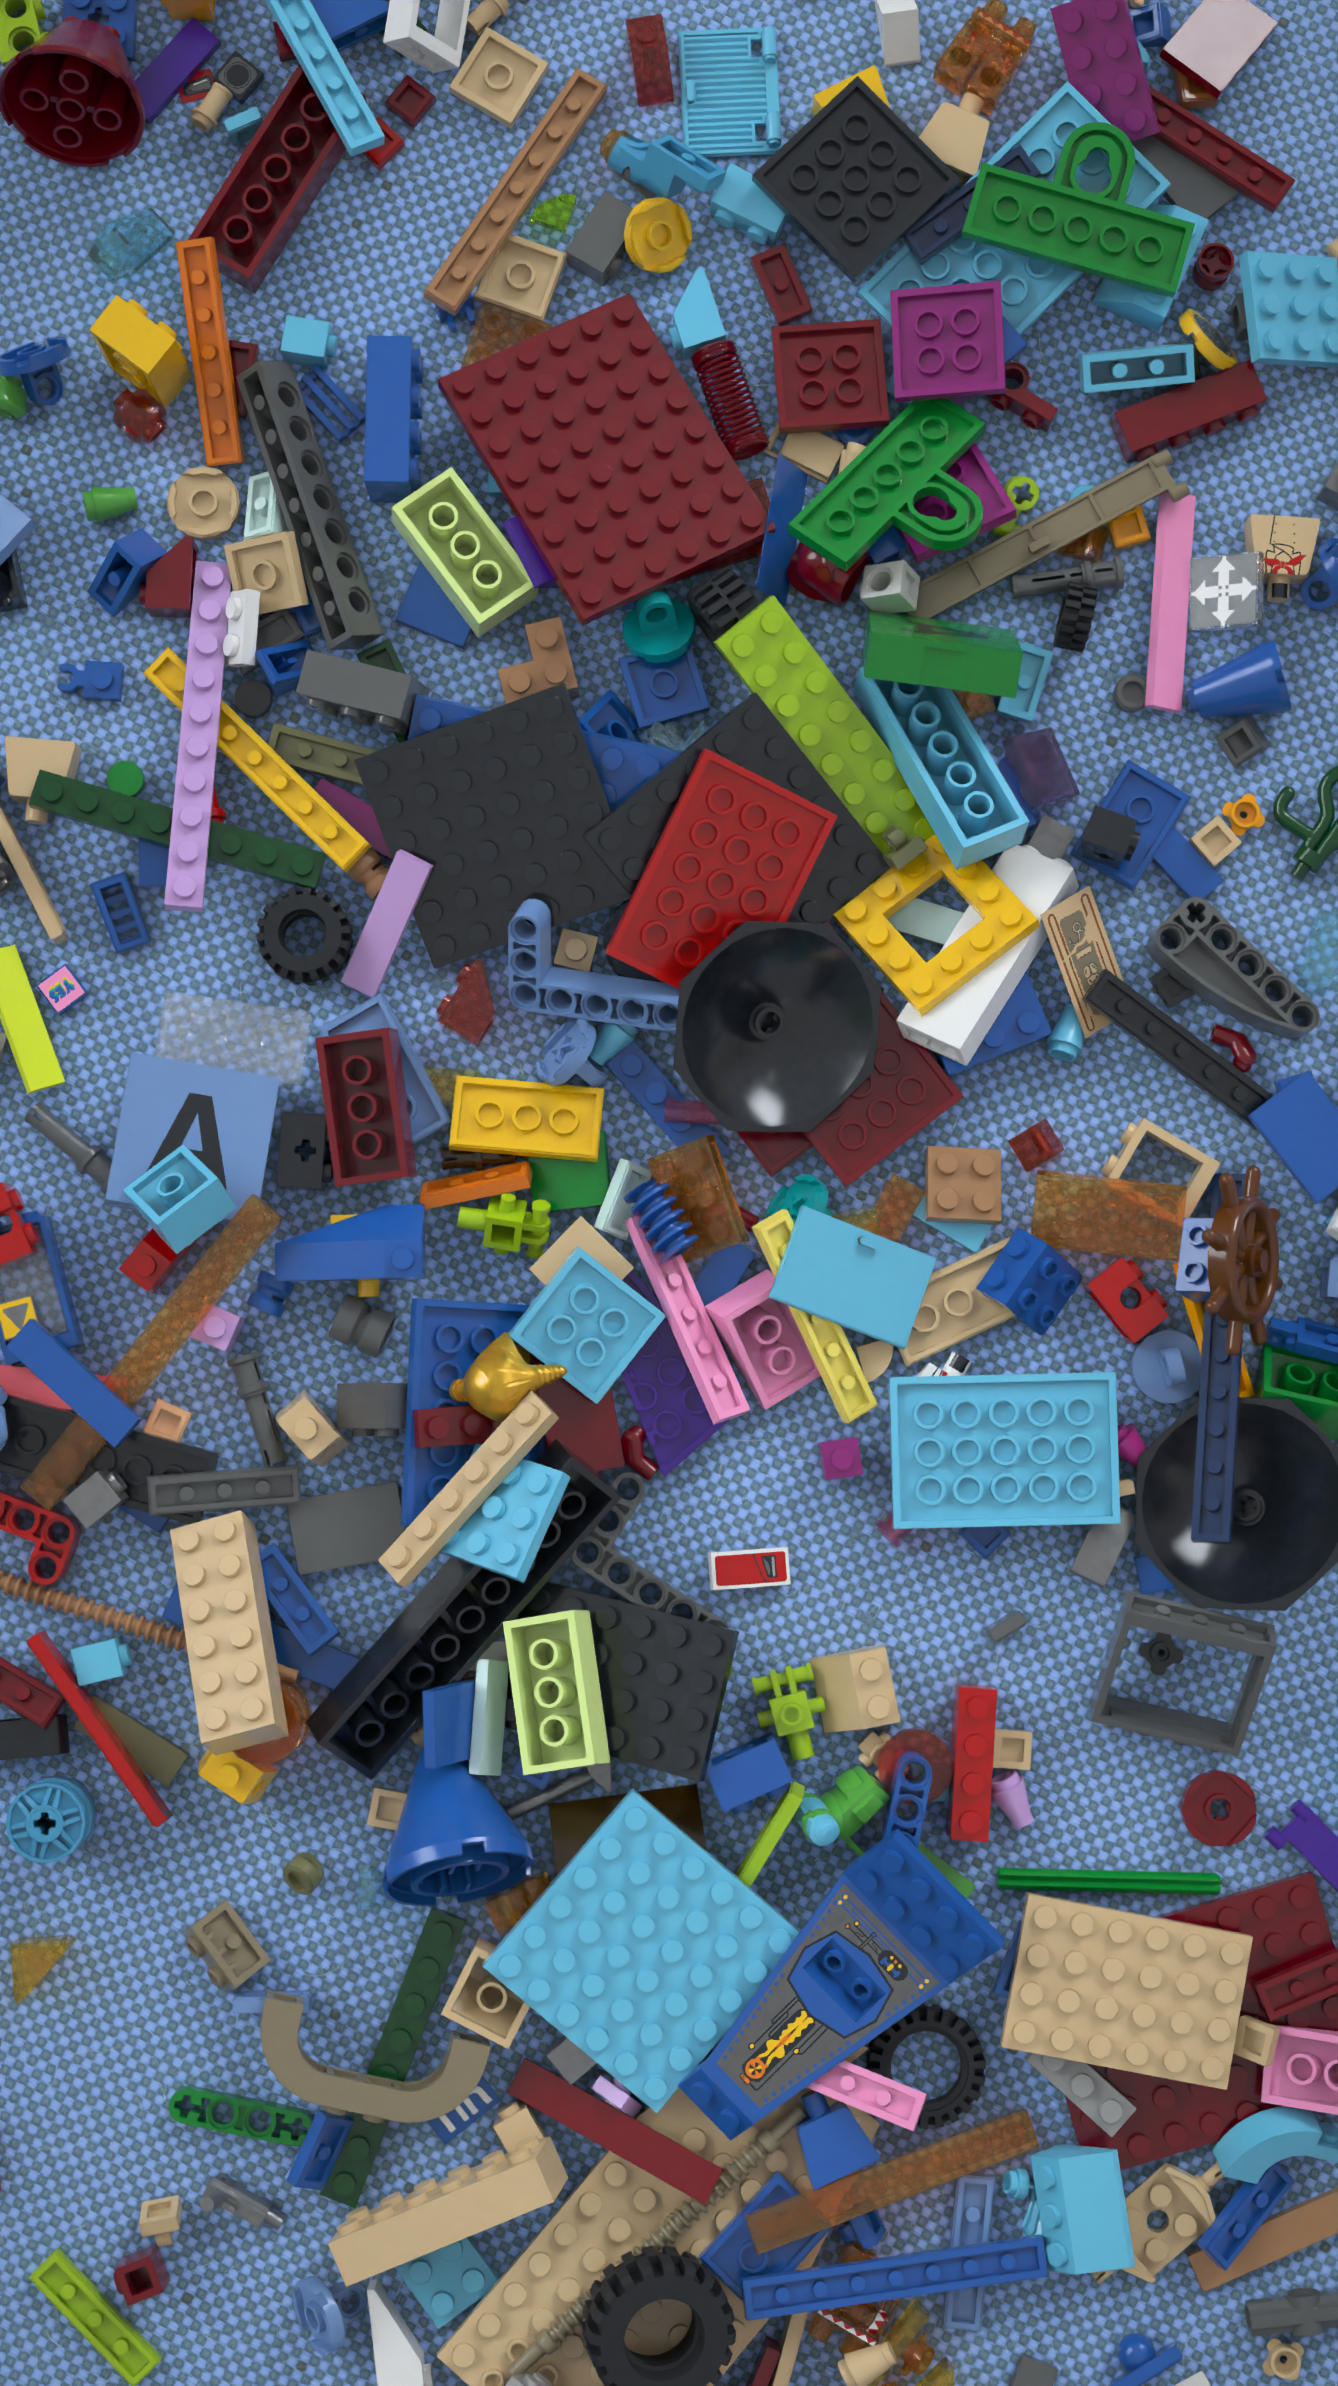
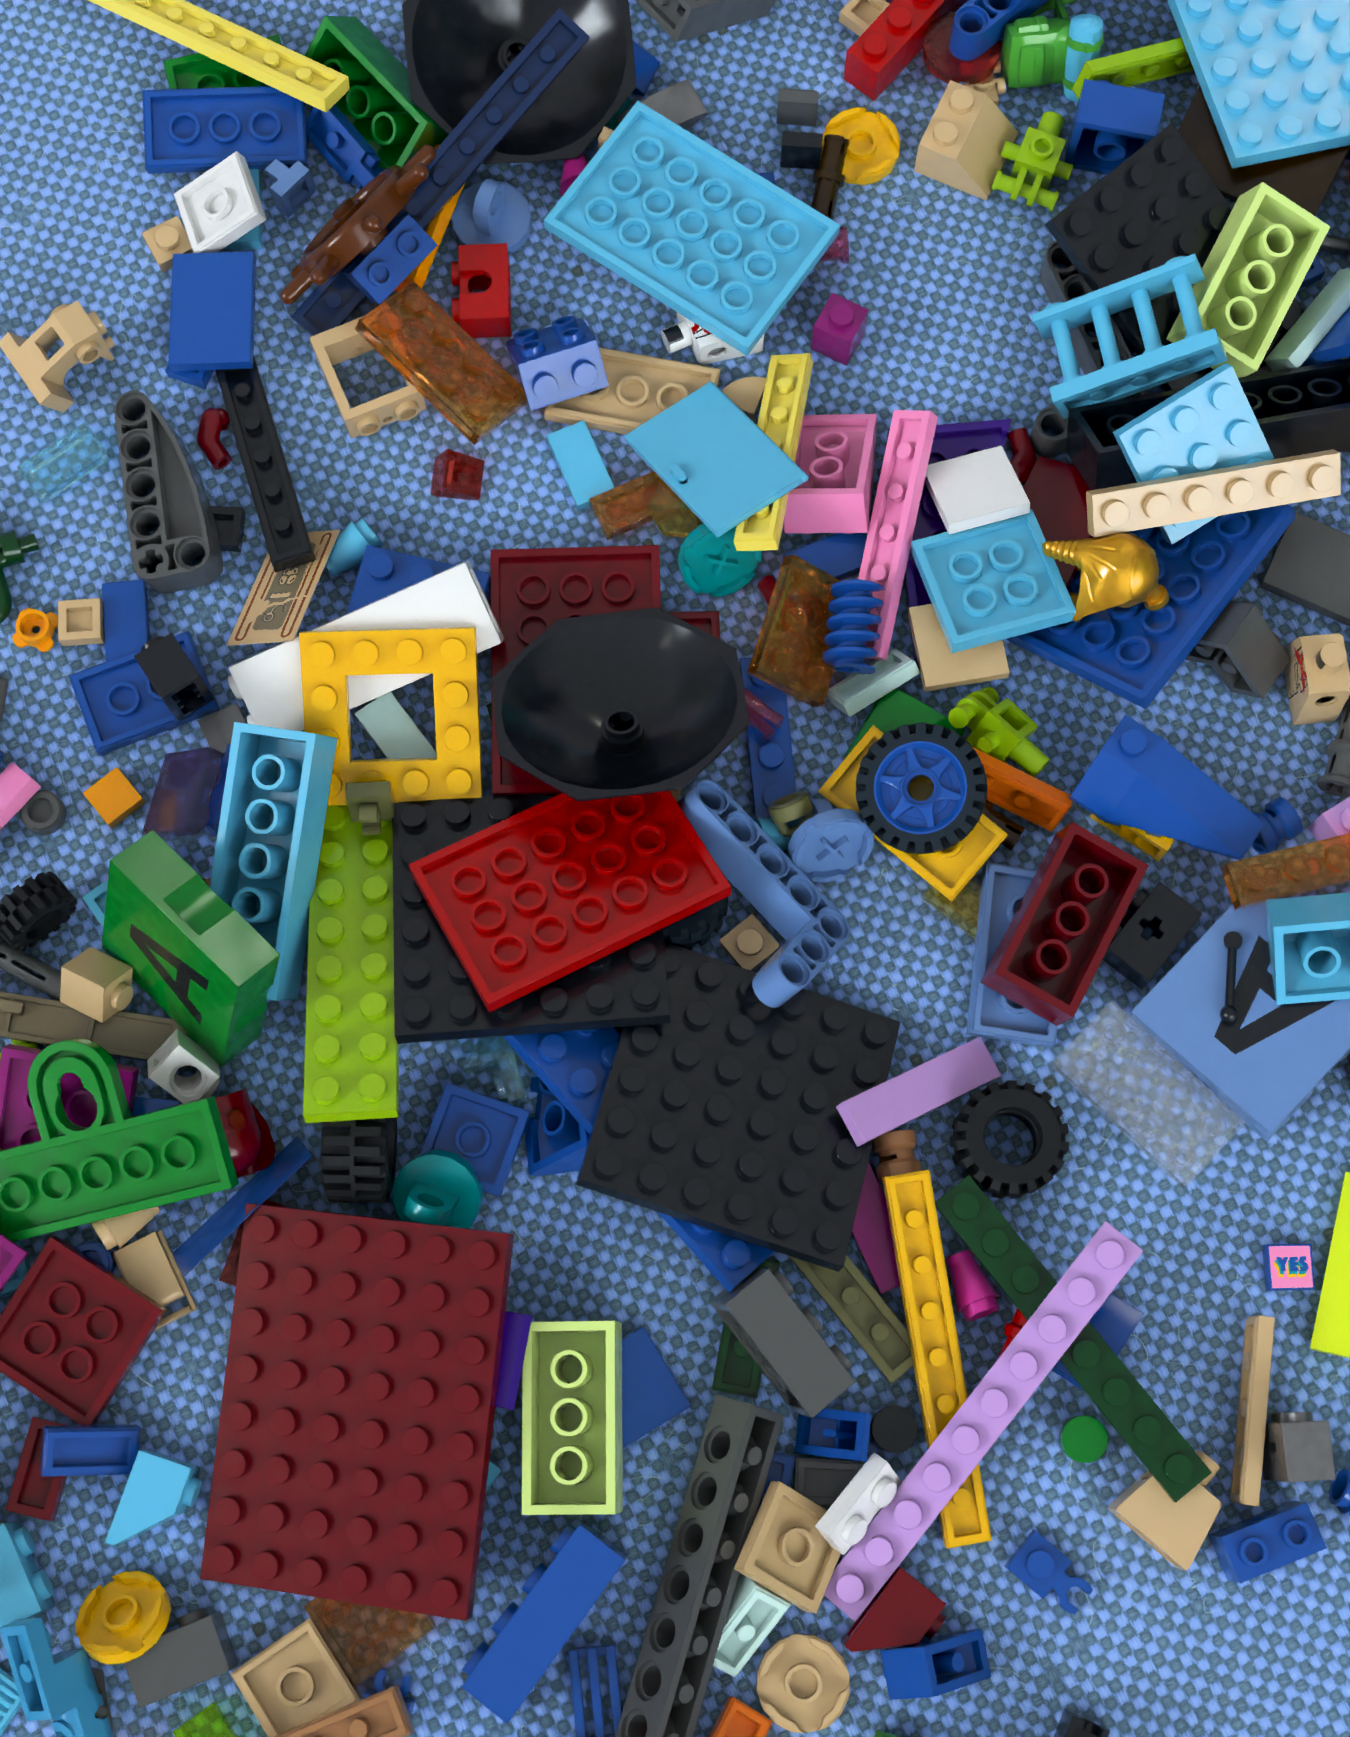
camera: 140 degrees left, 10 degrees down
(128, 893) = (1170, 1342): blue slope -> none
(242, 1171) = (1232, 942): none -> black hinge
(262, 820) = (971, 1287): none -> dark pink cone
(360, 1325) = (1202, 733): dark grey wheel -> none
(451, 1426) = (1191, 569): dark red hinge -> none
(471, 1007) = (892, 956): clear red slope -> none
(533, 1155) = (915, 753): none -> wheel
(549, 663) = (579, 1228): medium nougat brick -> none
(579, 1568) = (1157, 363): none -> medium azure fence
(610, 1055) = (788, 809): none -> olive tile
(648, 1391) = (976, 490): none -> white tile
(746, 442) = (220, 1327): dark red piece -> none
(749, 1568) = (991, 298): slope -> none
(759, 315) = (89, 1450): none -> blue tile
(936, 1633) = (872, 144): none -> yellow tile
(937, 1580) = (829, 175): none -> dark brown pin
(963, 1185) = (551, 482): medium nougat plate -> none
(976, 1590) = (801, 150): none -> black tile
(993, 600) = (96, 984): none -> tan brick
(1091, 738) = (114, 797): none -> light orange tile

